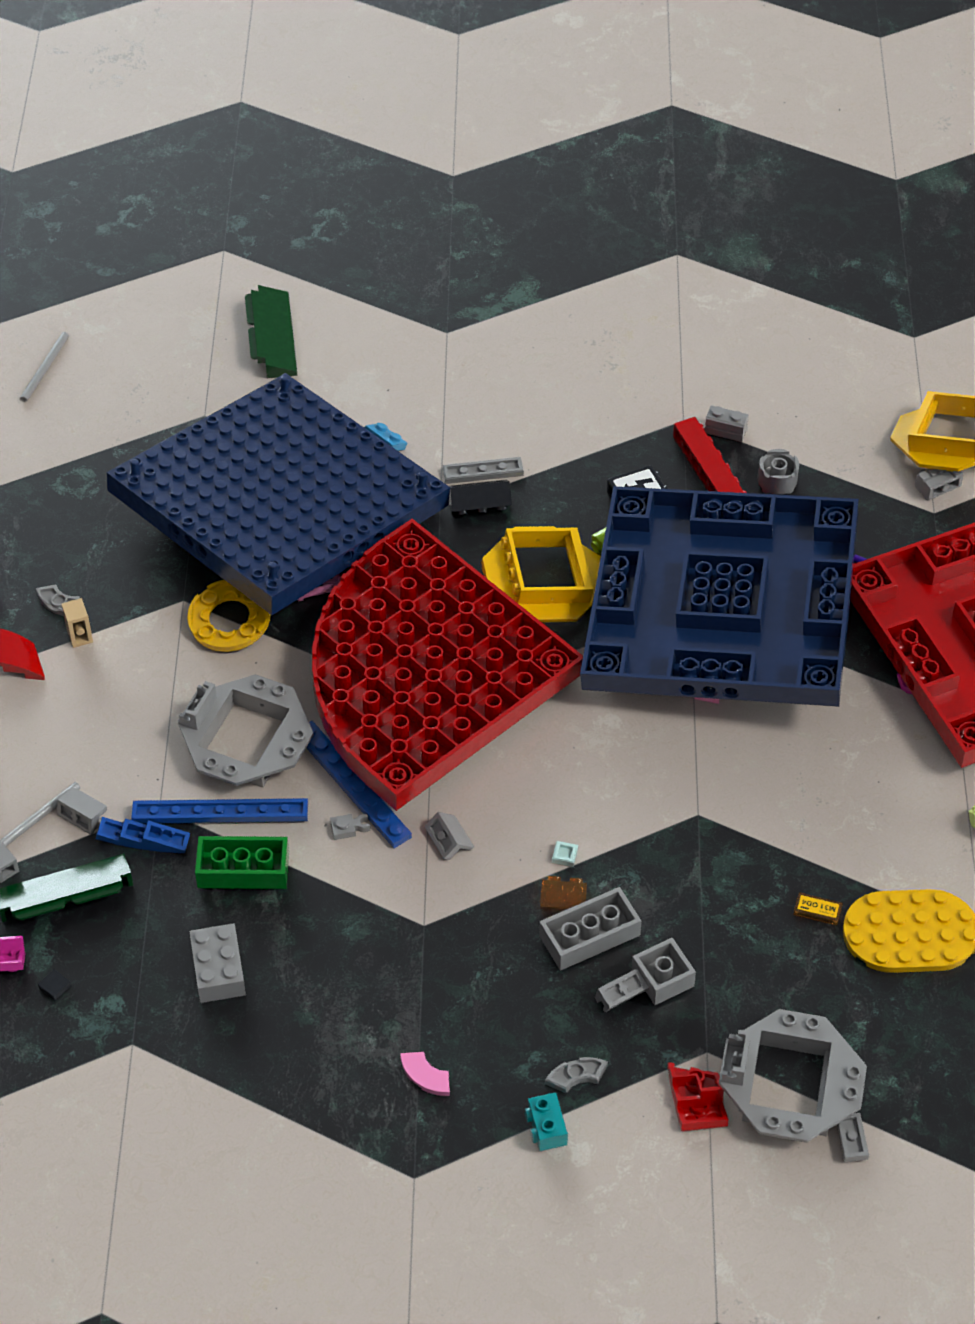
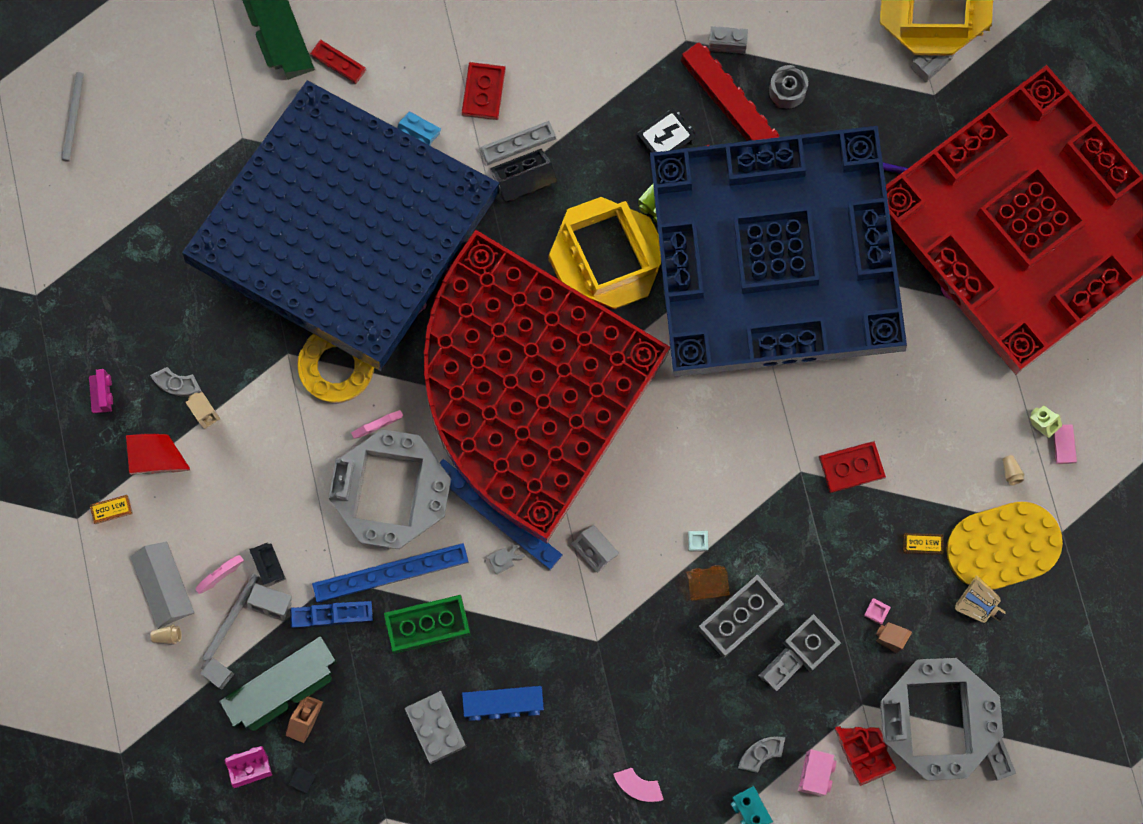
camera: 15 degrees left, 25 degrees up
(30, 774) = (224, 570): none -> bright pink tile
(76, 924) = (303, 719): none -> nougat slope
(92, 775) = (267, 564): none -> black hinge
(266, 670) = (375, 425): none -> bright pink tile
(300, 956) = (503, 702): none -> blue brick
(323, 372) = (338, 61): none -> red tile
(461, 422) = (483, 91): none -> red tile
(632, 1098) = (817, 773): none -> bright pink brick
(748, 963) = (877, 611): none -> bright pink tile
(756, 821) = (852, 467): none -> red tile
(759, 986) = (893, 636): none -> nougat slope
(867, 972) = (980, 602): none -> tan torso
(937, 860) = (1013, 472): none -> tan cone

